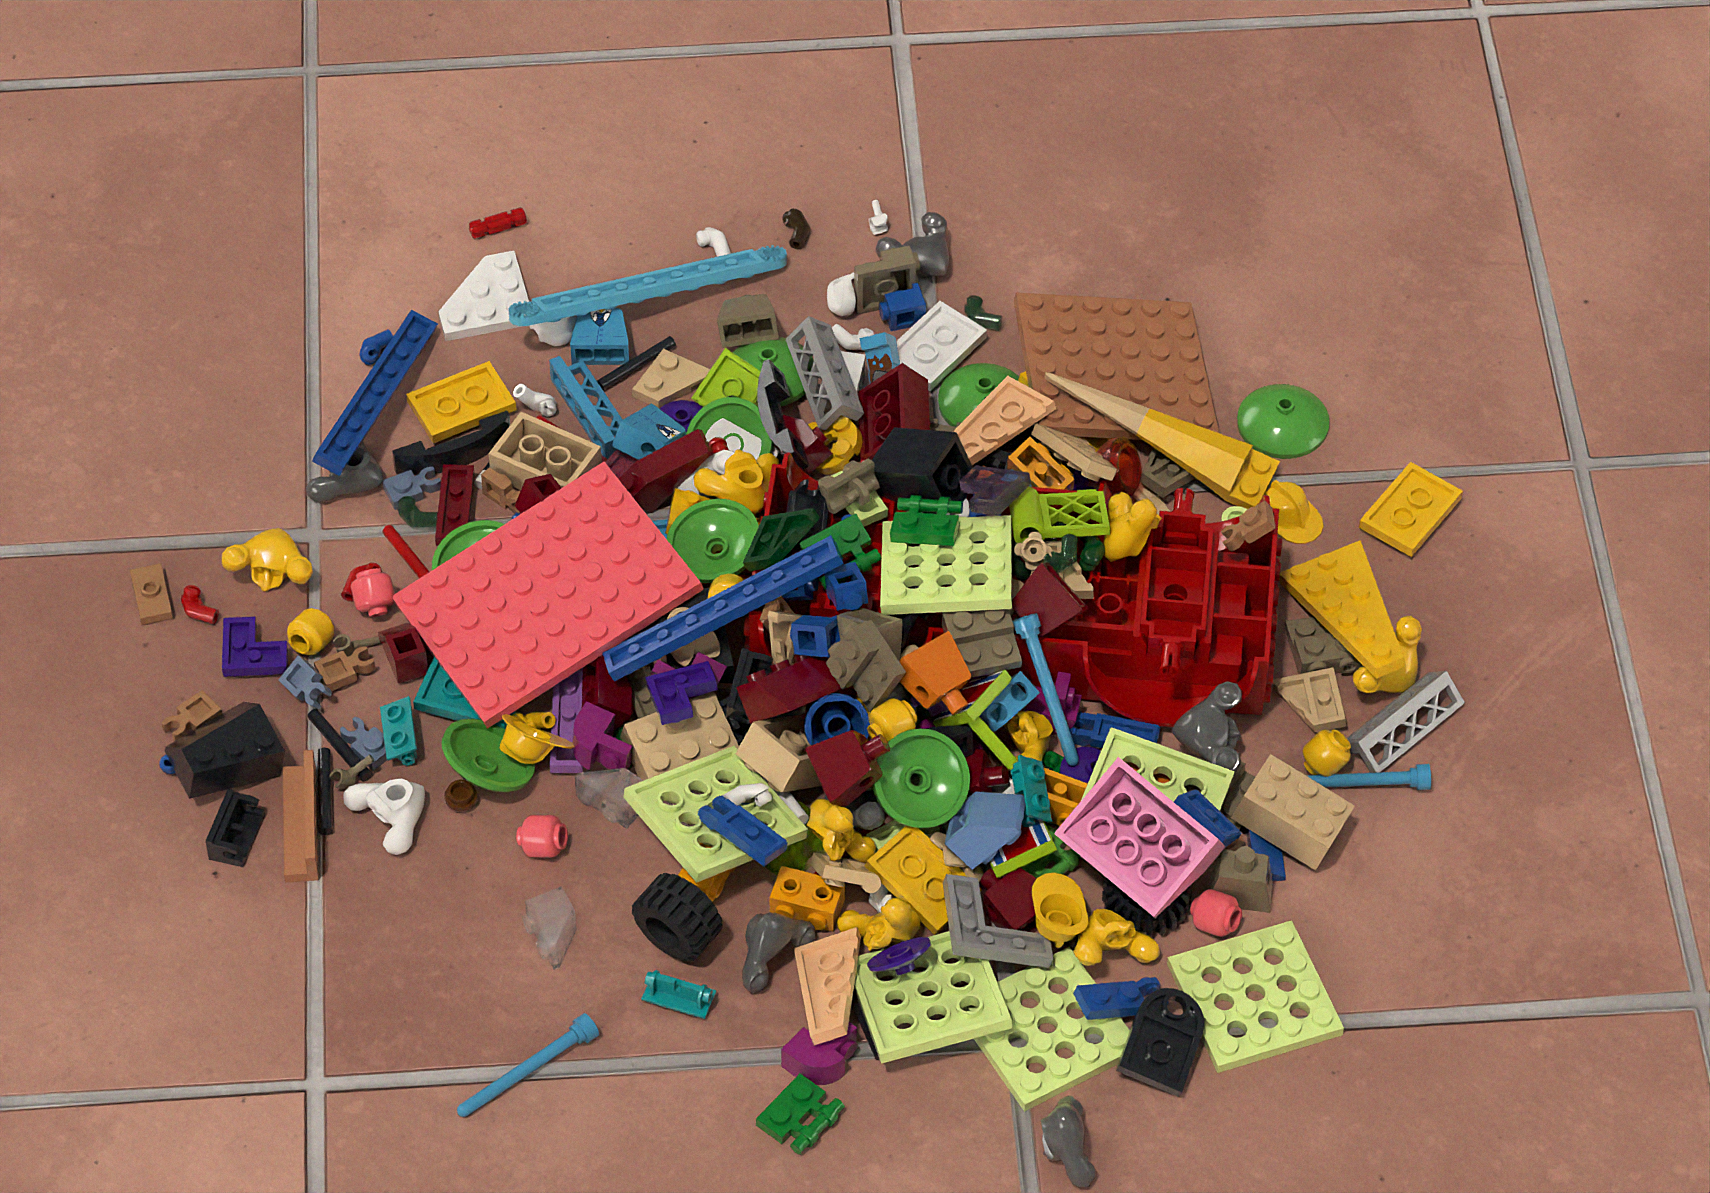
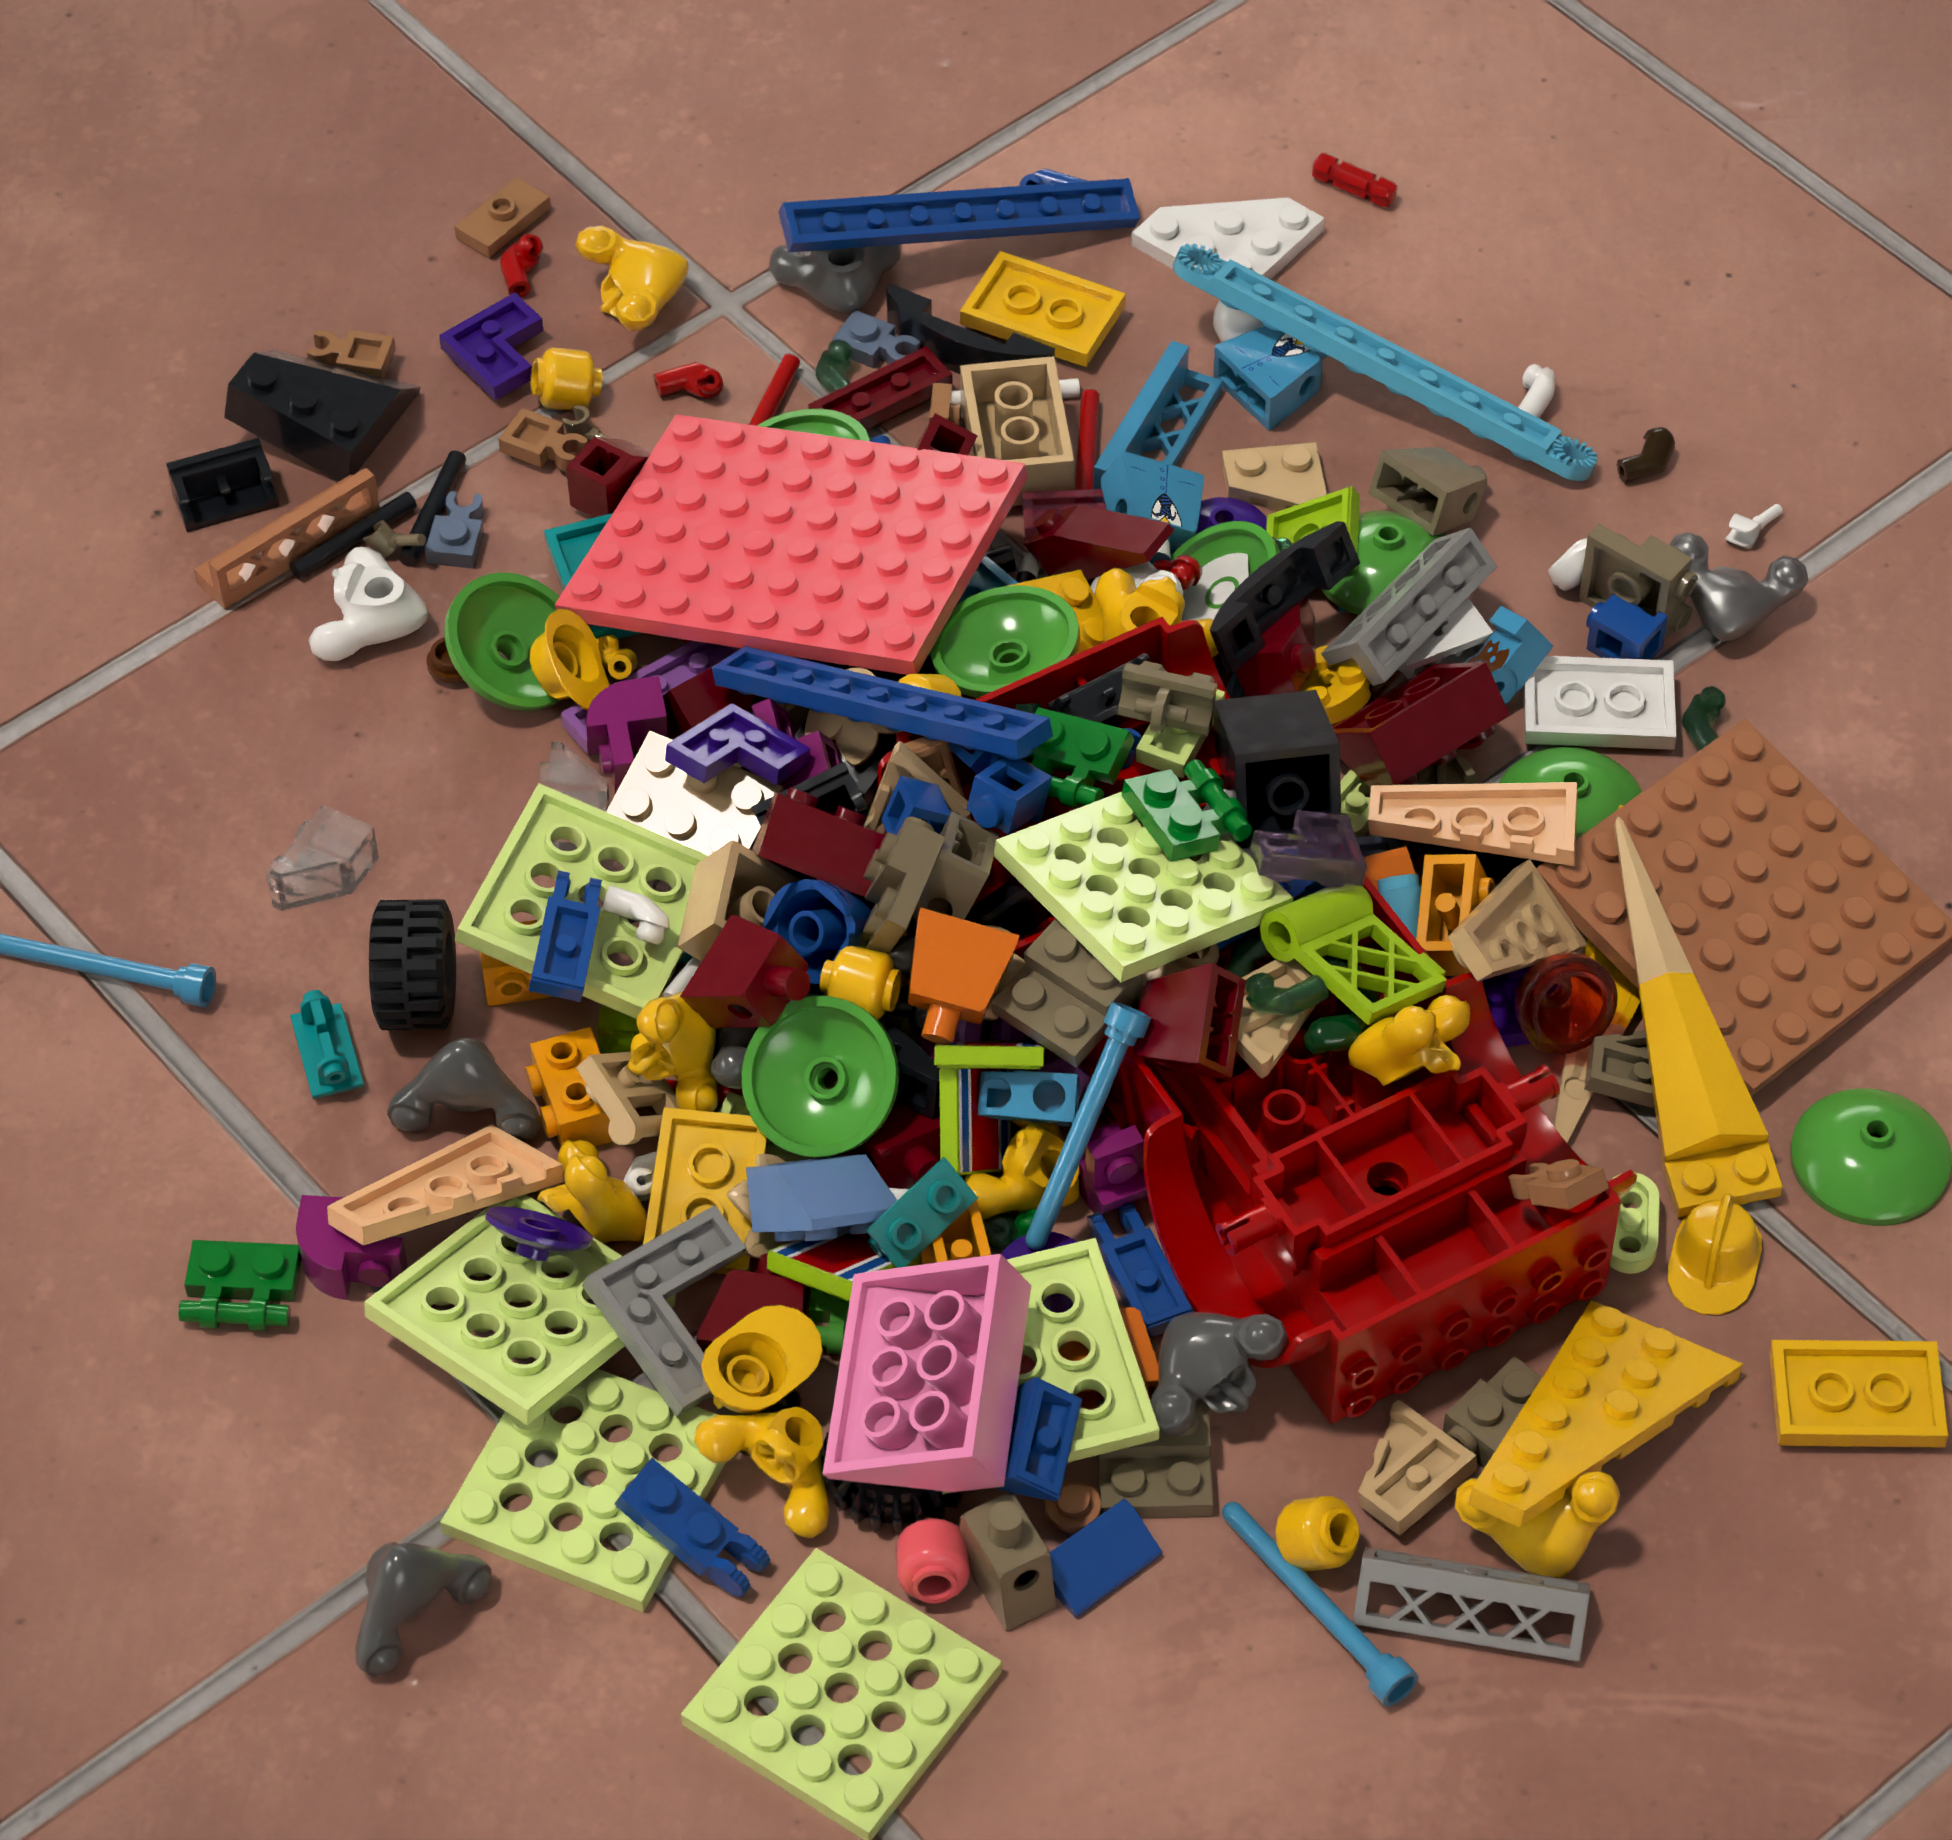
camera: 55 degrees right, 0 degrees up
(303, 682) = (487, 417): sand blue plate -> none
(373, 592) = (668, 393): coral head -> none
(399, 731) = (506, 534): teal hinge -> none
(536, 401) = (1119, 383): white arm -> none
(542, 836) = (448, 769): coral head -> none
(635, 363) = (1270, 432): black bar -> none
(777, 537) = (1027, 681): dark green wing -> none
(850, 341) = (1520, 602): white arm -> none
(1033, 541) = (1254, 944): tan plate -> none
(1161, 1043) = (657, 1620): black plate -> none
(1292, 812) = (1168, 1546): tan brick -> none

